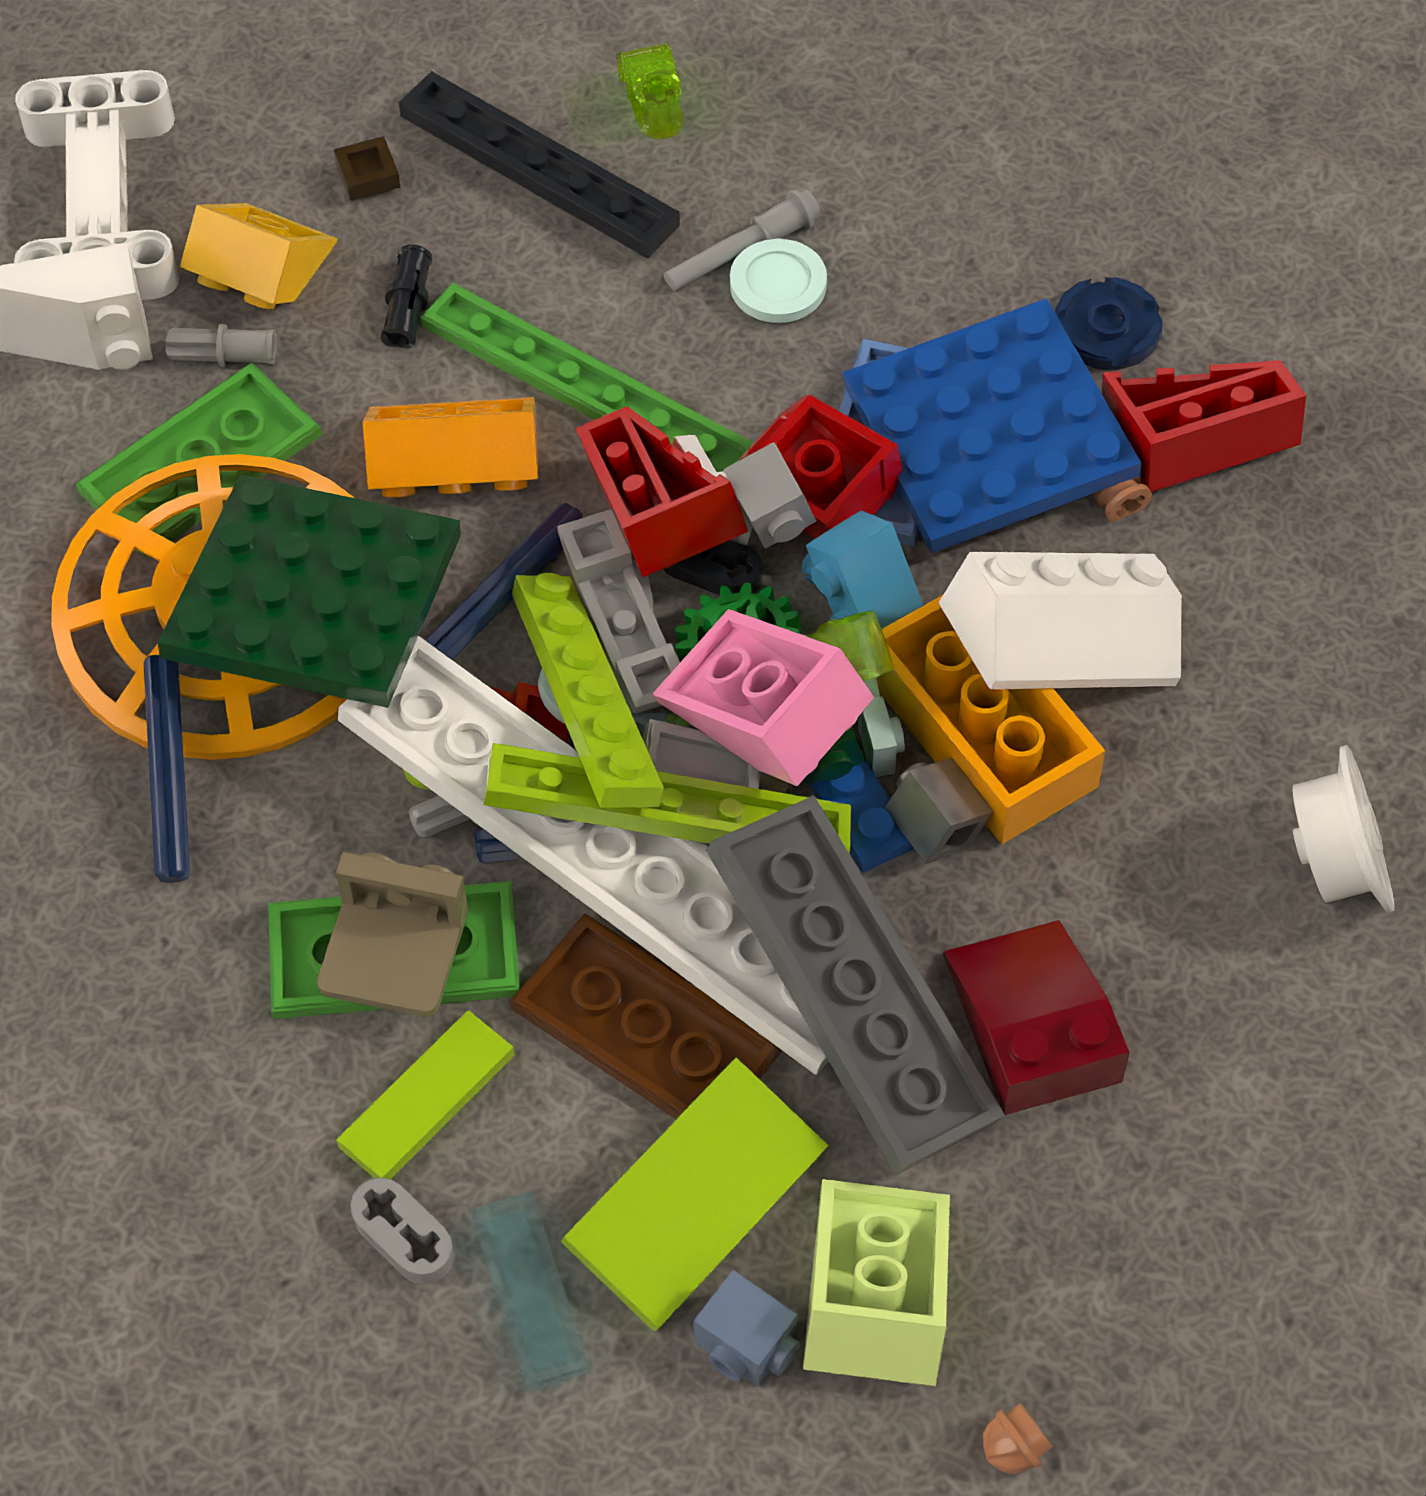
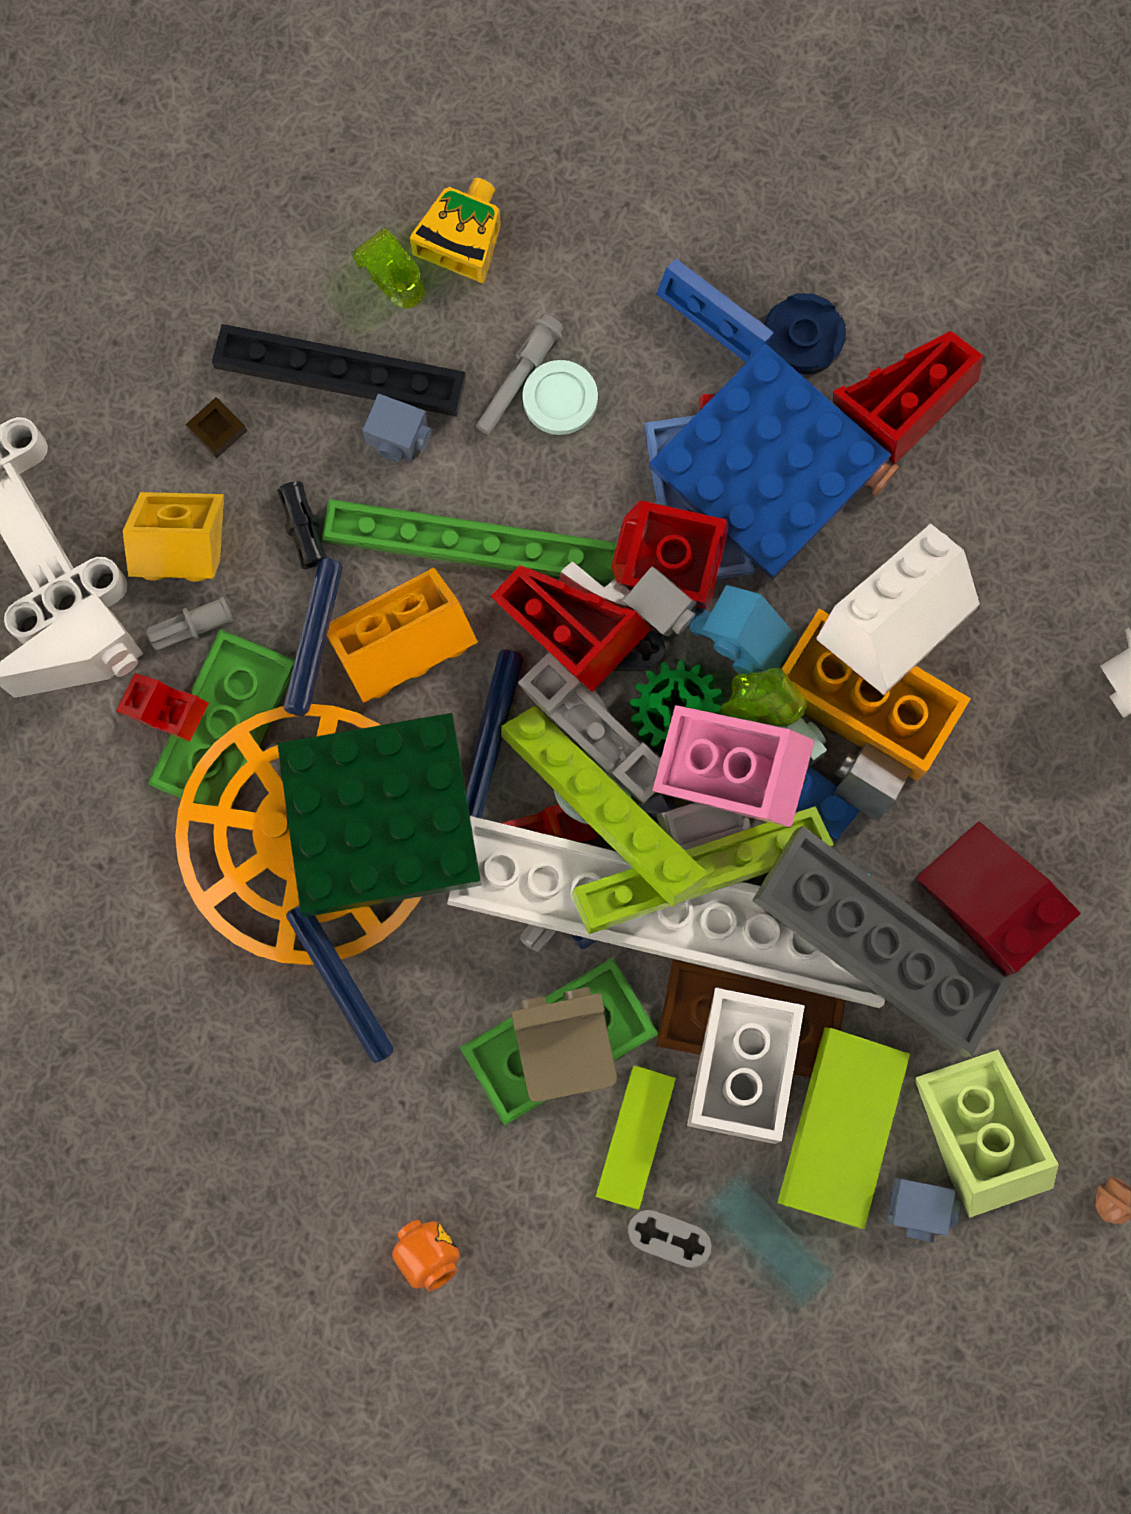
camera: 25 degrees left, 20 degrees up
(89, 1112) = (426, 1255): none -> orange head
(139, 412) = (162, 707): none -> red slope
(349, 403) = (313, 637): none -> dark blue axle
(567, 238) = (396, 429): none -> sand blue brick
(601, 1060) = (746, 1066): none -> white slope
(751, 79) = (460, 231): none -> yellow torso
(1003, 250) = (713, 311): none -> blue plate

